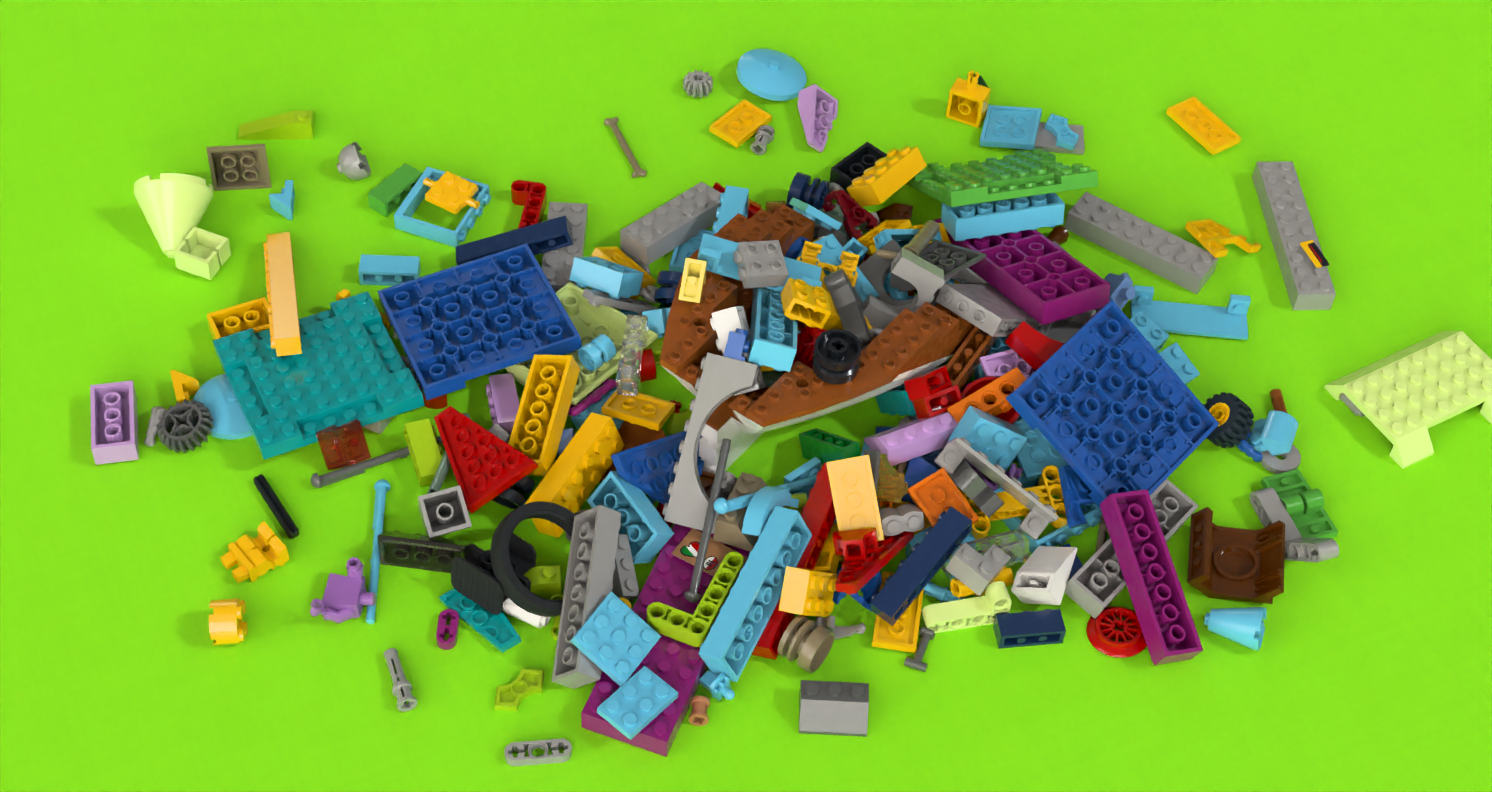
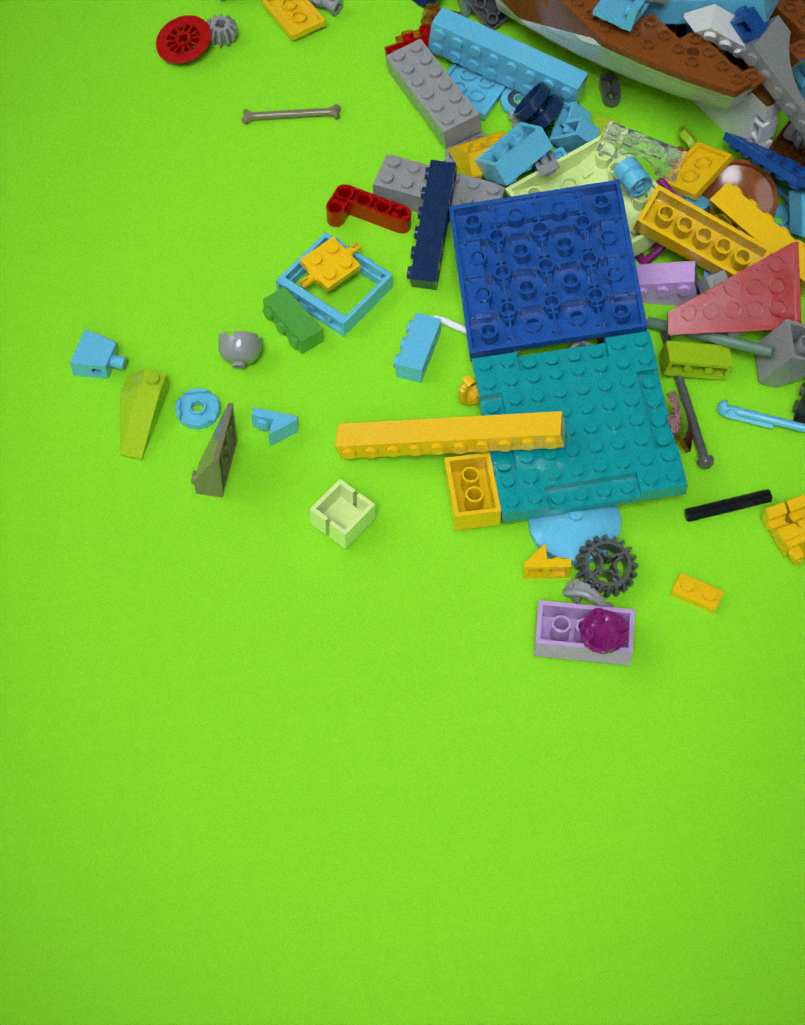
camera: 70 degrees left, 10 degrees up
(103, 421) = (603, 631): none -> magenta dish
(172, 206) = (275, 526): yellowish green cone -> none
(177, 499) = (697, 593): none -> yellow plate
(298, 164) = (200, 419): none -> medium azure tile
(326, 88) = (96, 356): none -> medium azure torso
(675, 63) = (195, 33): none -> red piece
(693, 280) = (655, 32): light yellow slope -> none

